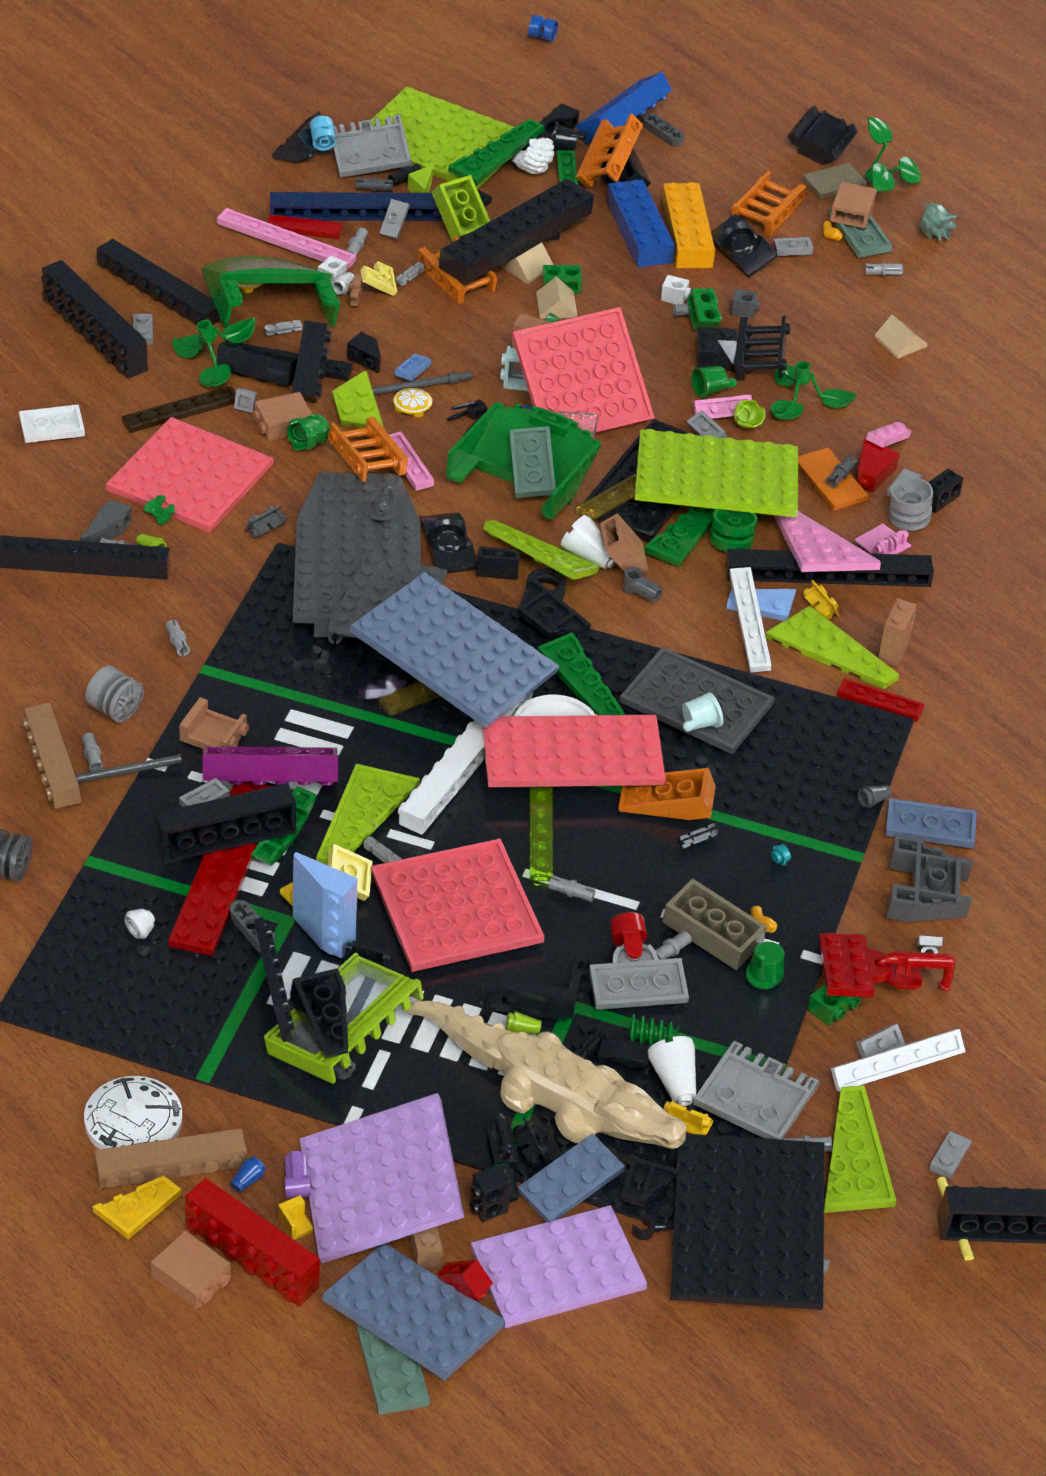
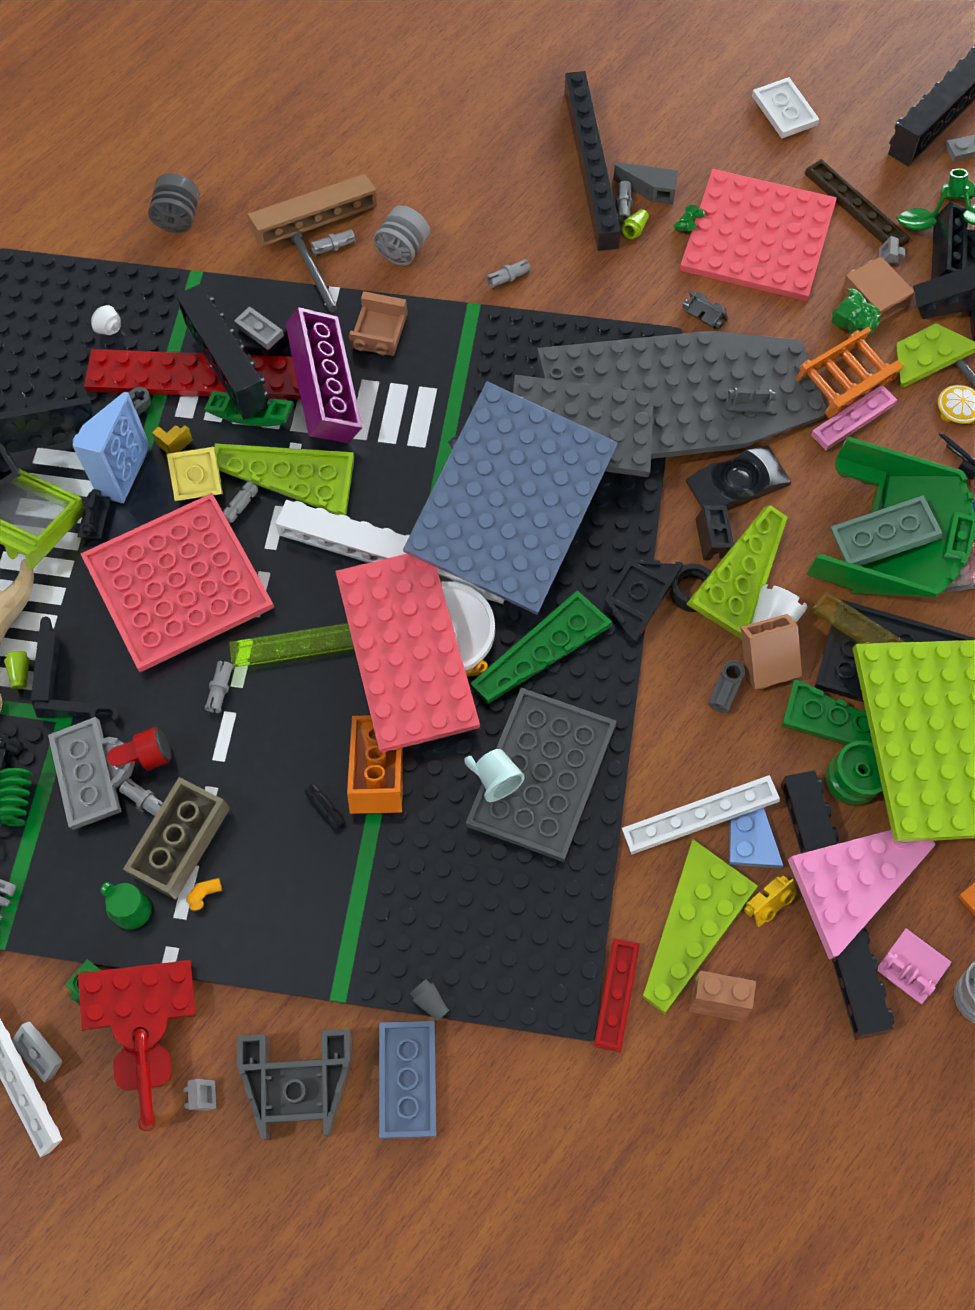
camera: 85 degrees right, 20 degrees up
(780, 854) = (308, 900): teal plate -> none

